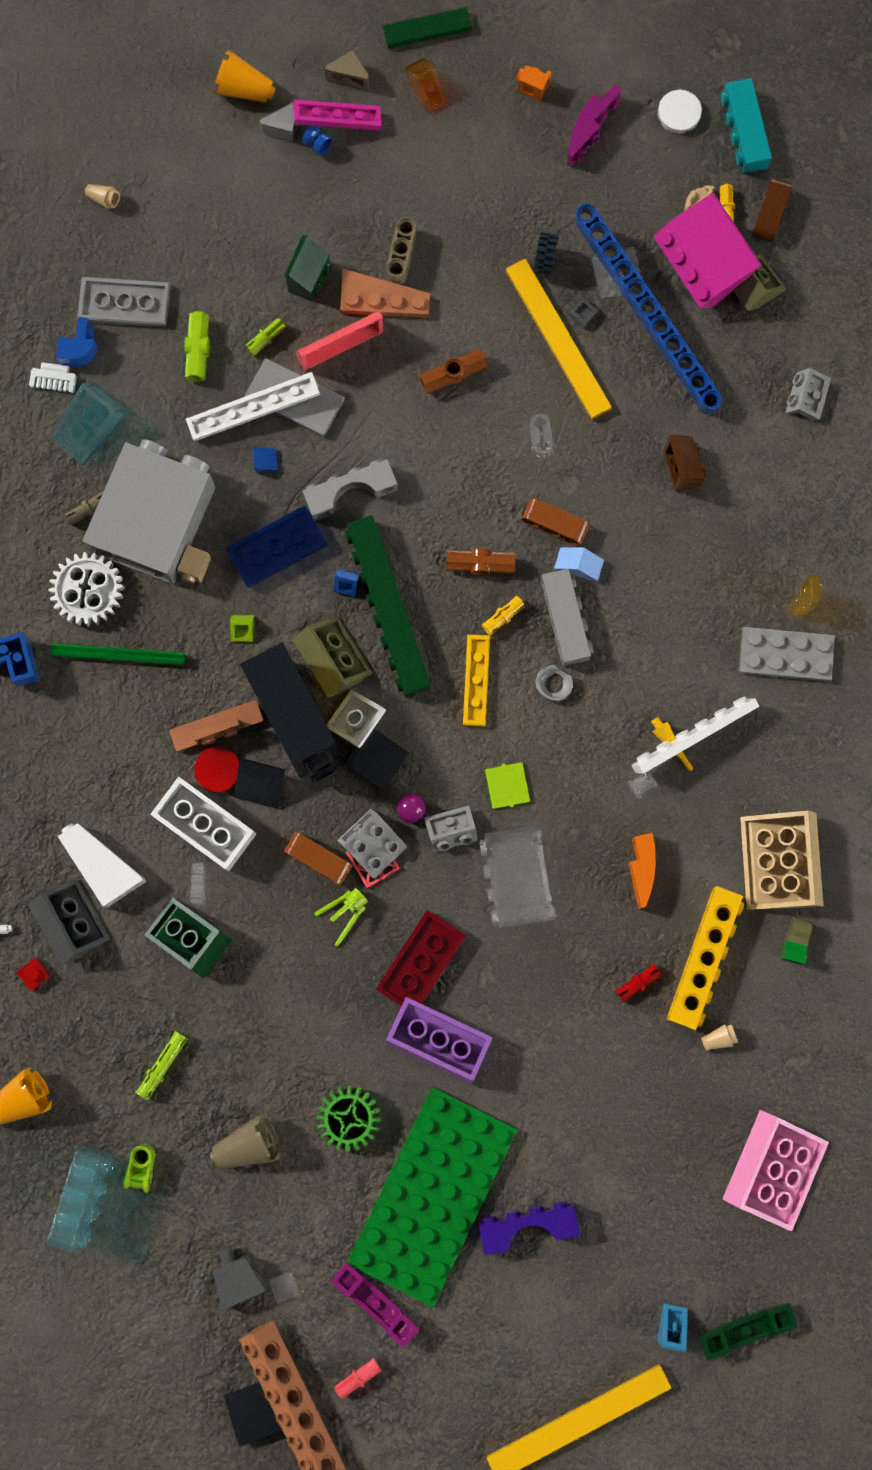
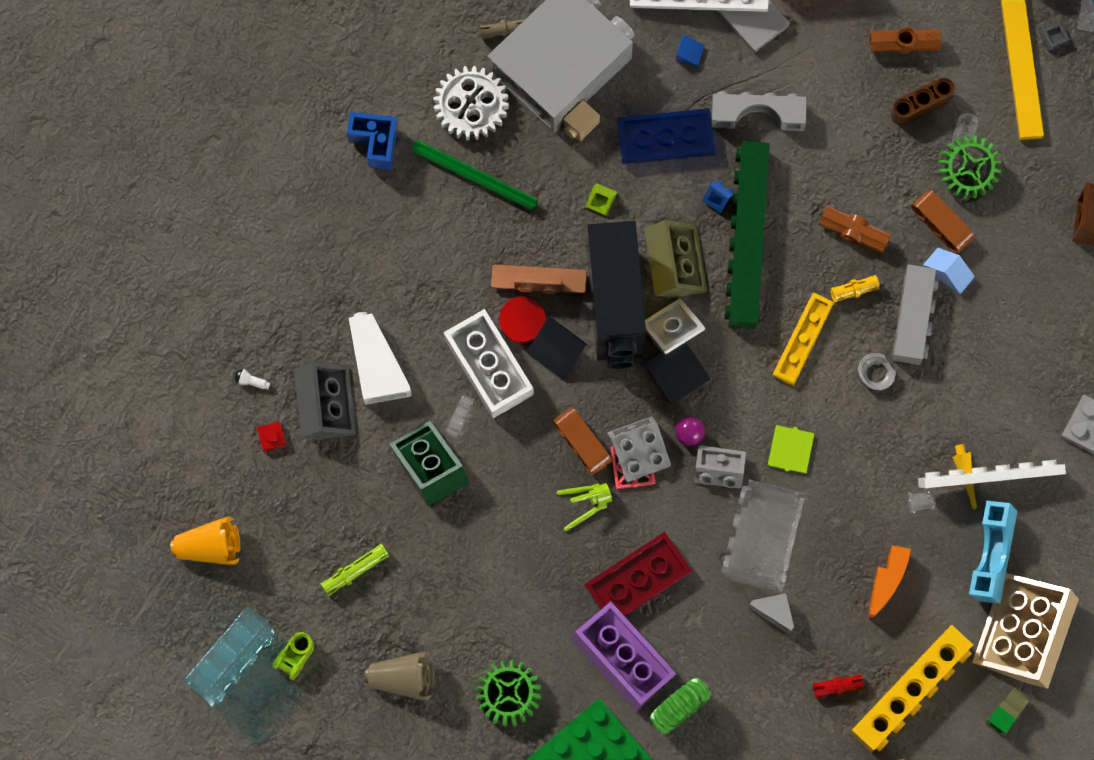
camera: 25 degrees right, 5 degrees down
(495, 410) = (928, 92): none -> reddish brown beam
(508, 1064) = (680, 705): none -> bright green gear
(555, 939) = (775, 610): none -> light grey slope
(572, 448) = (966, 157): none -> bright green gear
(730, 820) = (998, 533): none -> medium azure arch

